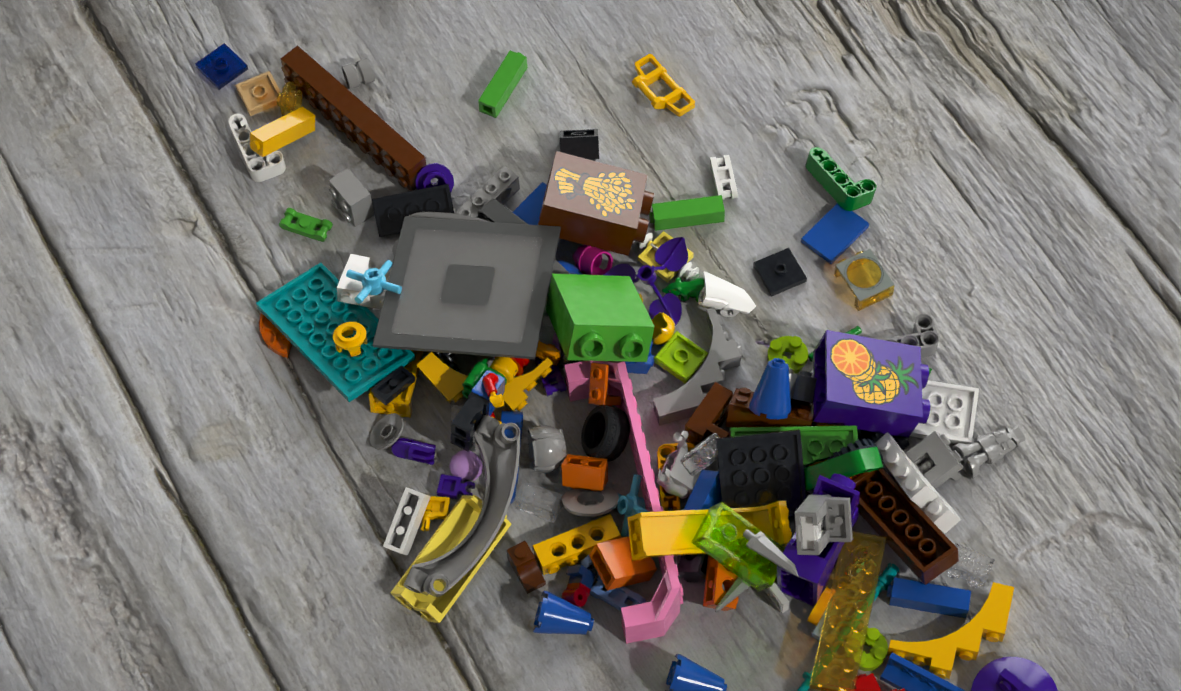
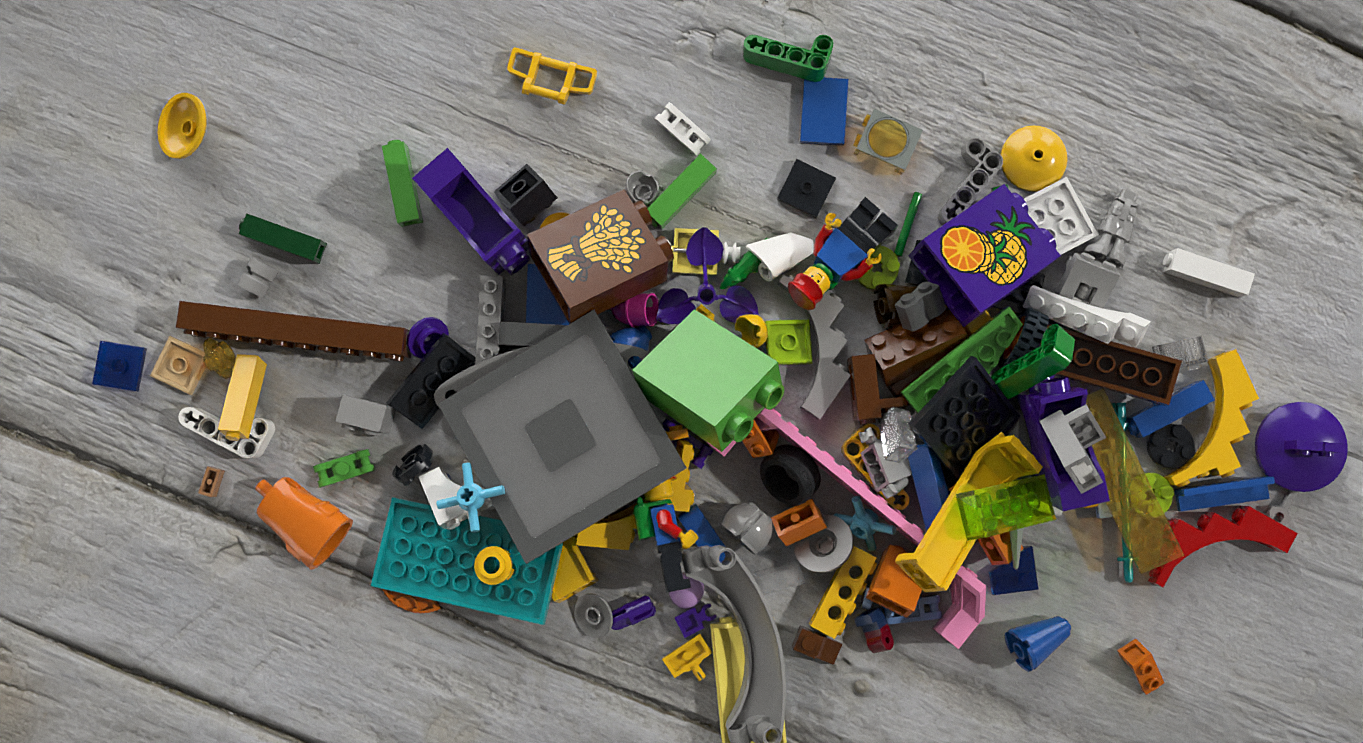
camera: 35 degrees left, 25 degrees up
(213, 172) = (211, 481): none -> medium nougat piece
(250, 236) = (302, 521): none -> orange torso
(348, 248) = (414, 461): none -> black plate
(393, 385) = (568, 576): black plate -> none
(395, 63) = (282, 238): none -> dark green brick
(406, 521) = (687, 691): white brick -> none
(532, 120) = (474, 213): none -> dark purple brick
(561, 617) = (883, 670): blue cone -> none
(662, 189) = (642, 187): none -> light grey hair
(715, 630) = (1006, 579): none -> clear blue wing
(764, 547) = (1043, 502): light grey bar -> none
(767, 320) = (842, 253): none -> piece
(773, 391) = (922, 339): blue cone -> none
(908, 615) = (1182, 451): none -> black plate
(956, 370) = (1024, 168): none -> yellow dish
(1037, 526) = (1208, 272): none -> white brick

